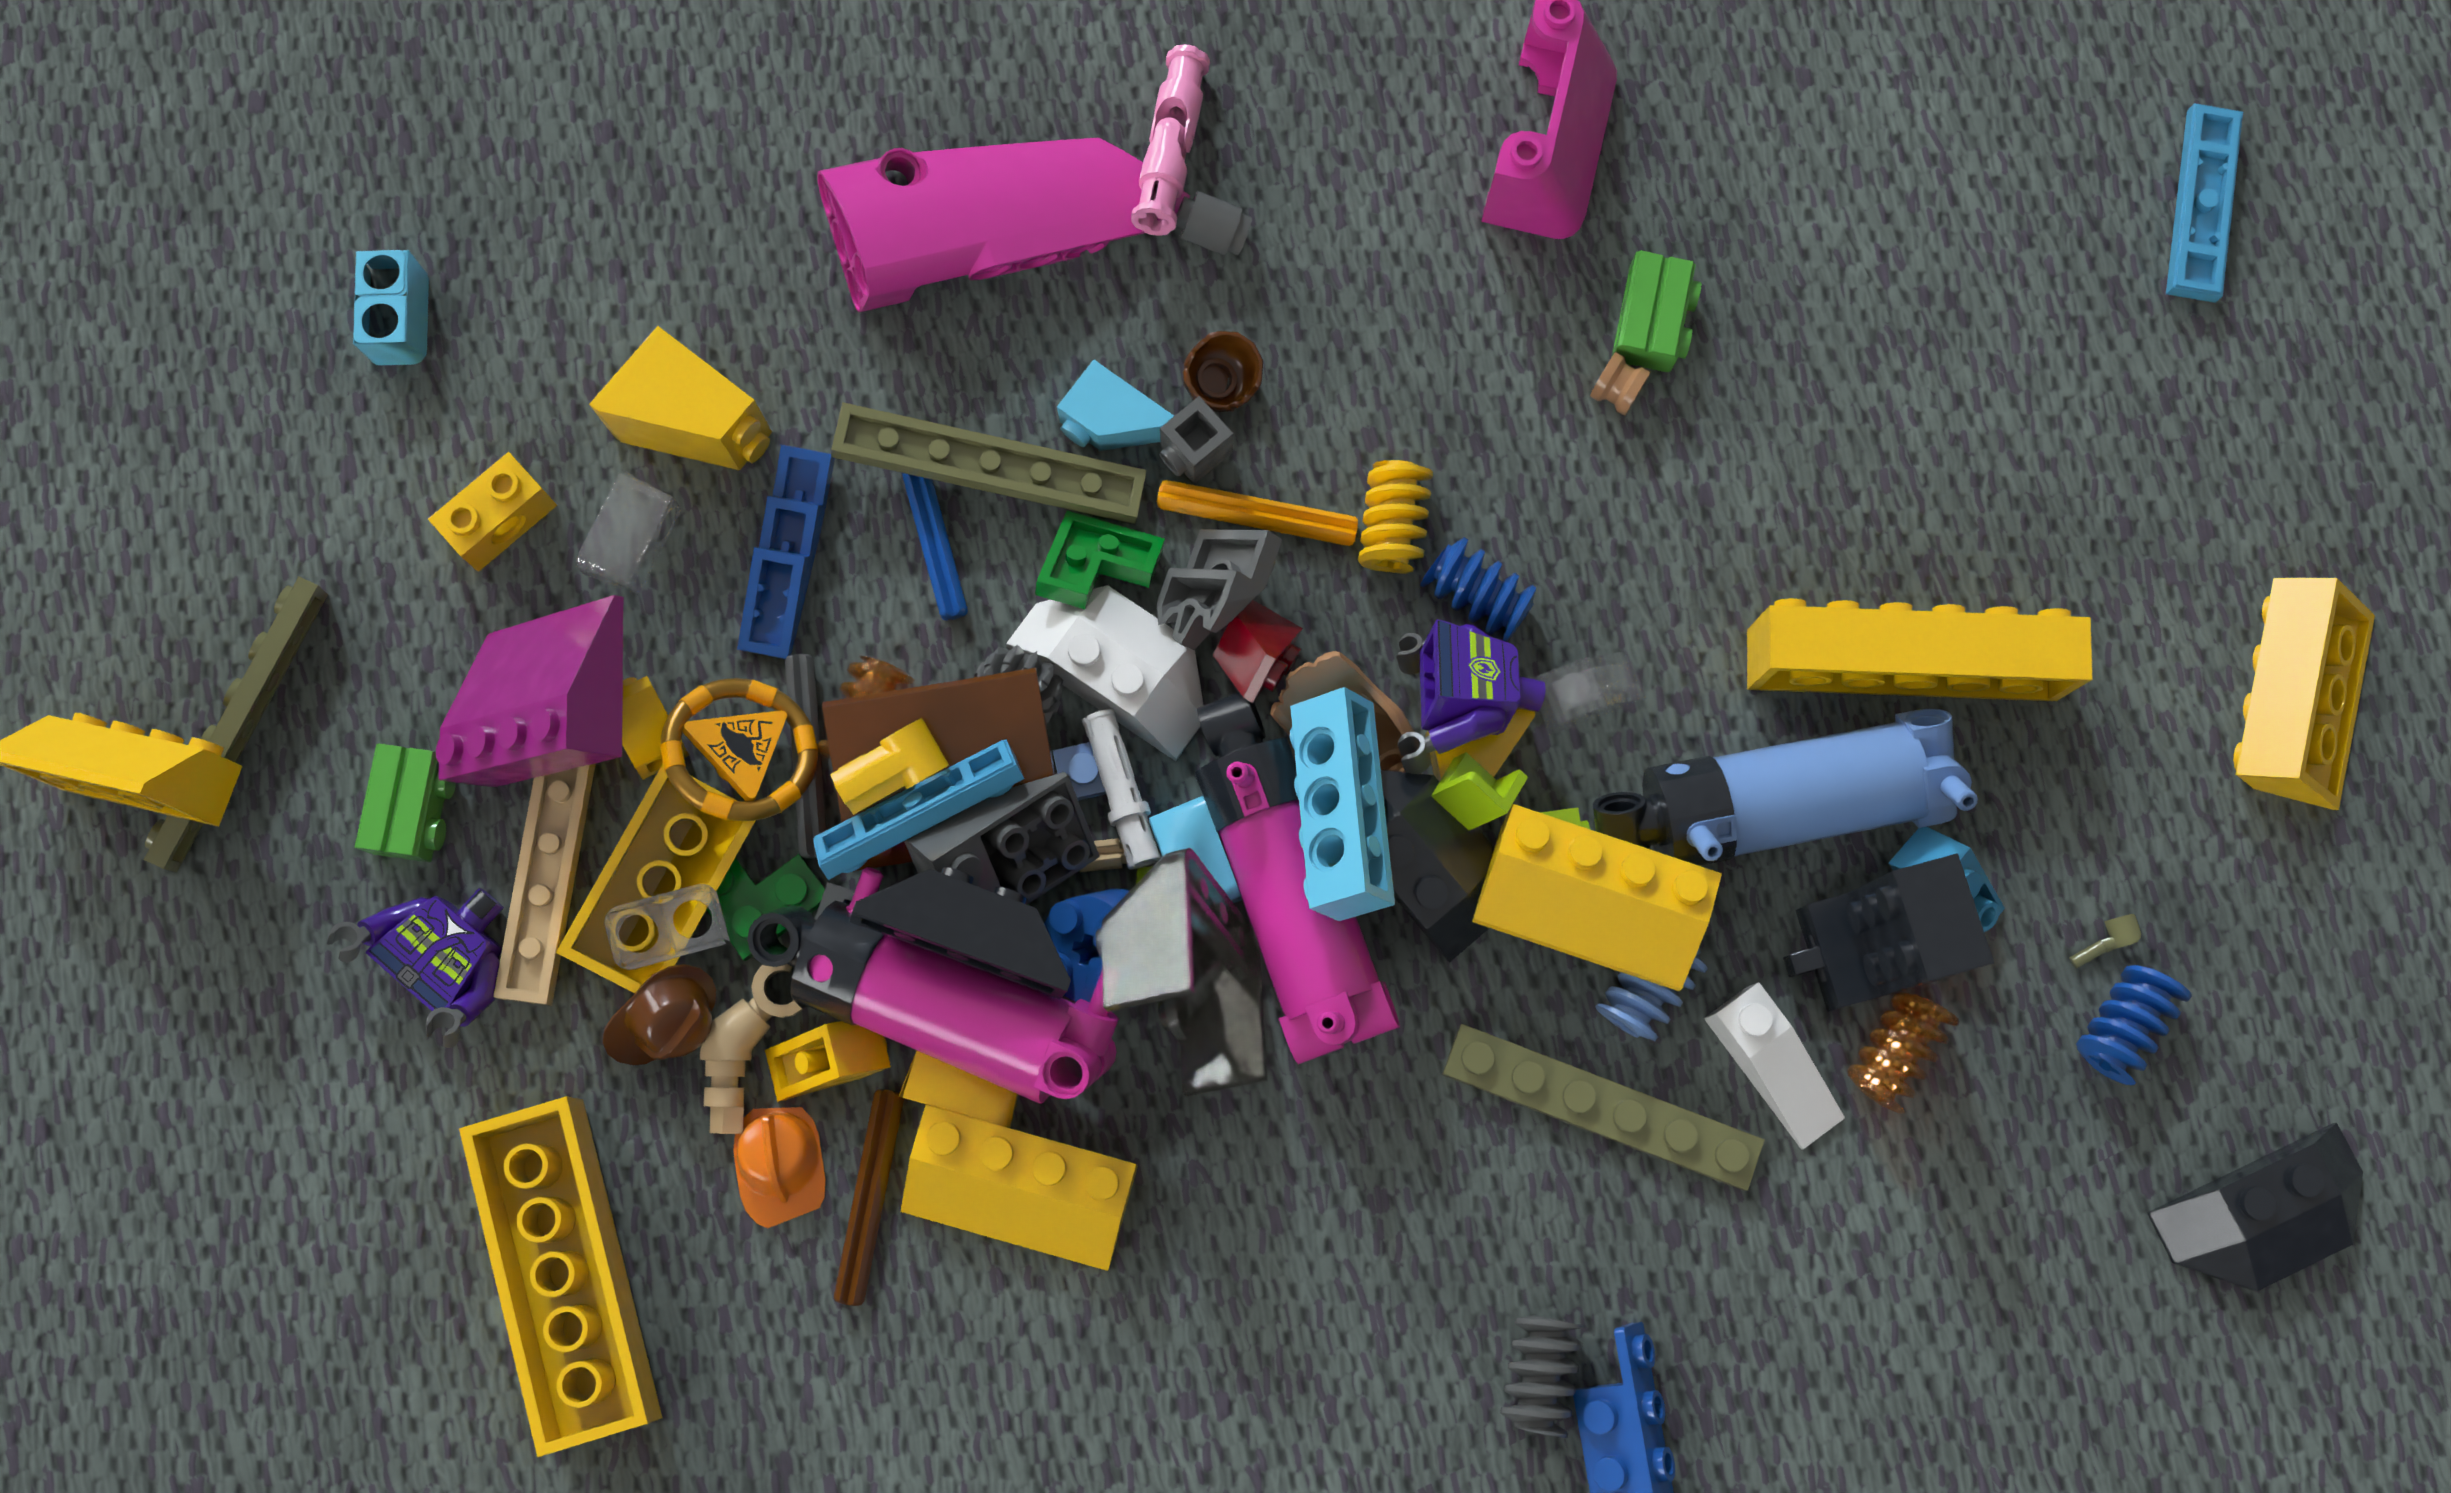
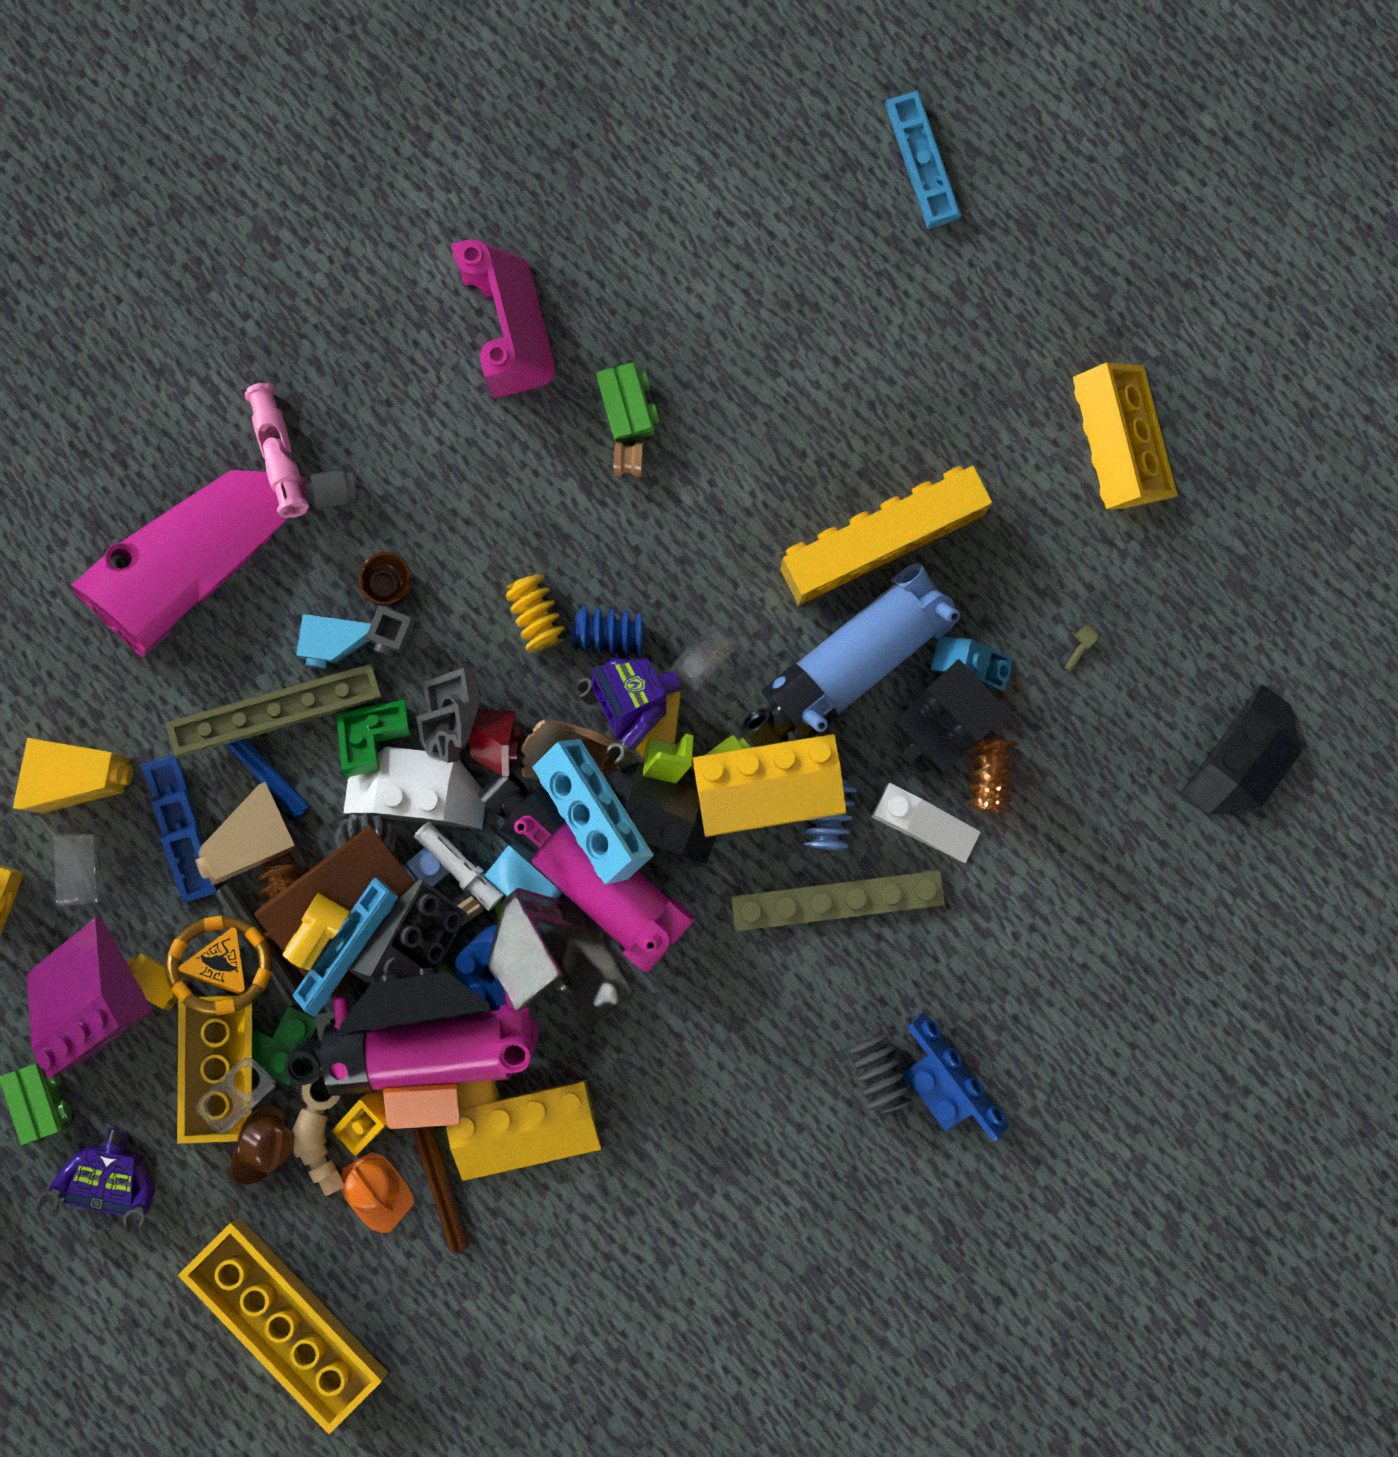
camera: 25 degrees left, 5 degrees up
(544, 886) = (147, 1107): tan plate -> none
(862, 607) = (245, 839): none -> tan slope
(904, 1077) = (422, 1106): none -> orange slope
(1257, 512) = (451, 653): light orange axle -> none
(2128, 1020) = (1115, 688): blue piece -> none

